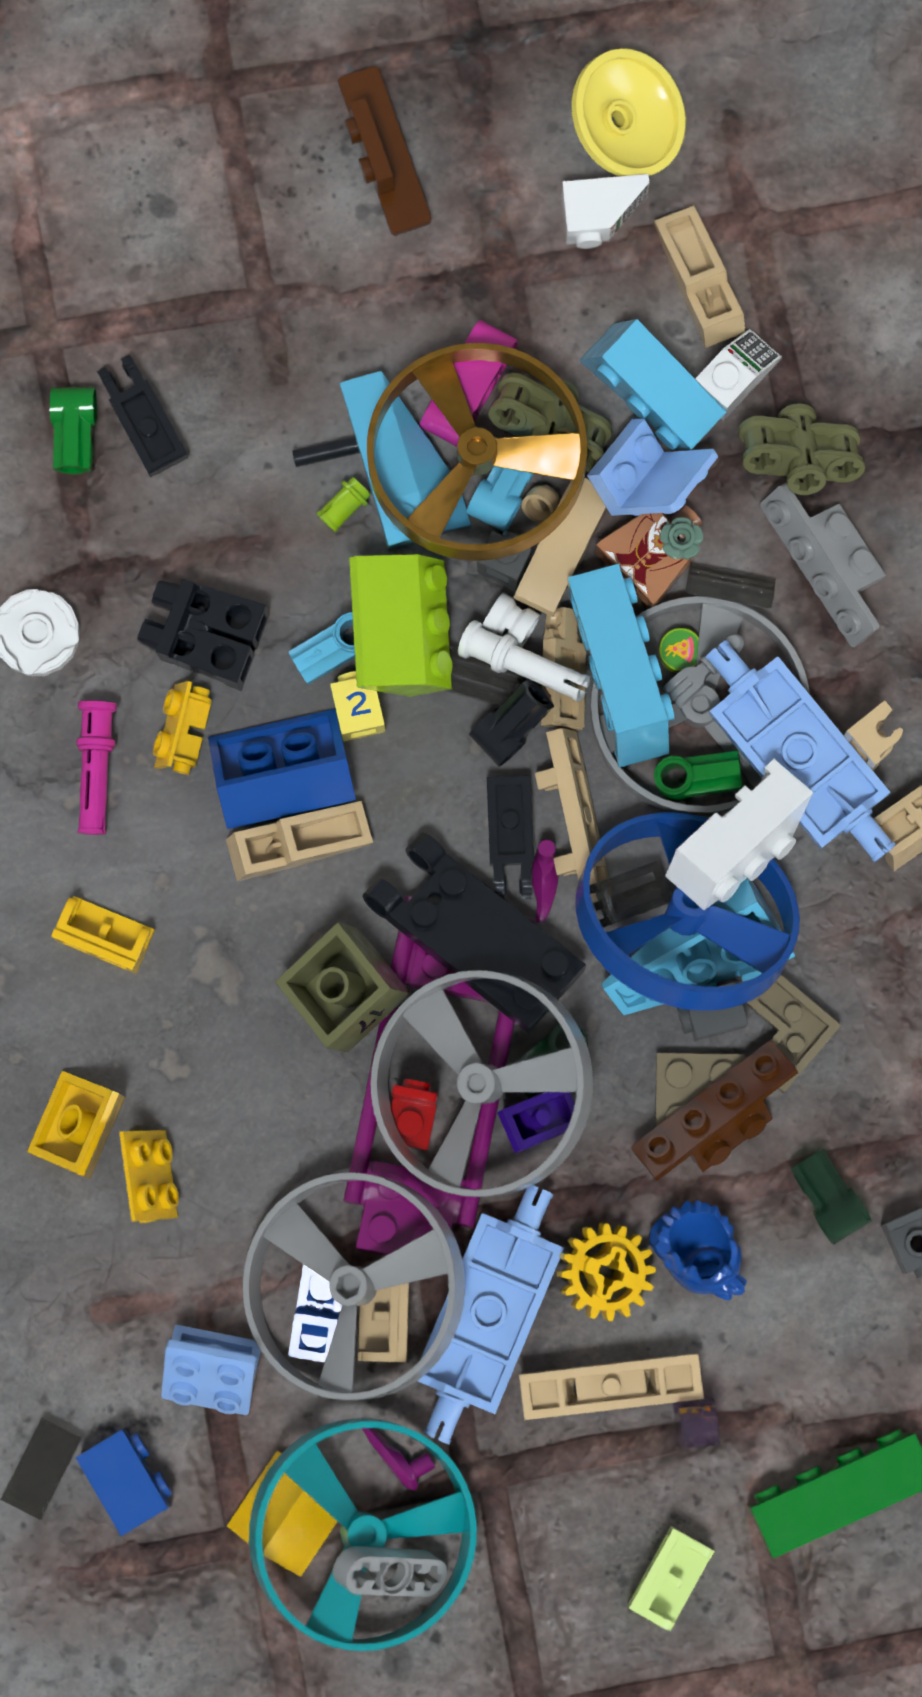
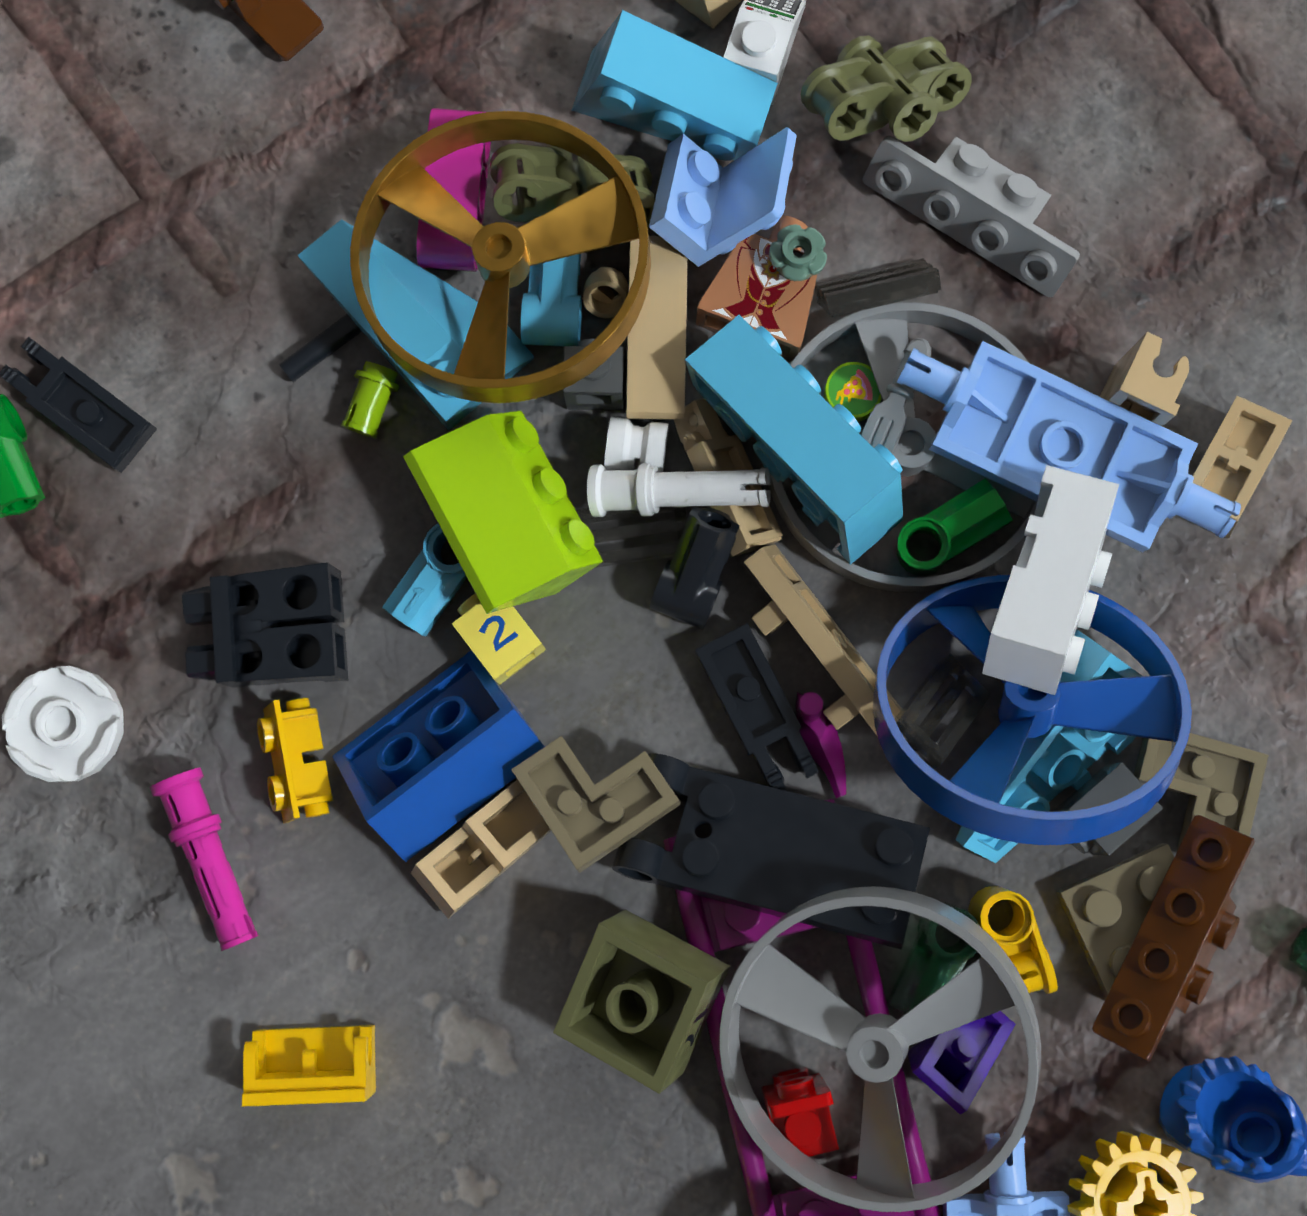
camera: 25 degrees left, 0 degrees up
(366, 855) = (592, 817): none -> dark tan plate
(609, 1074) = (1019, 939): none -> yellow piece

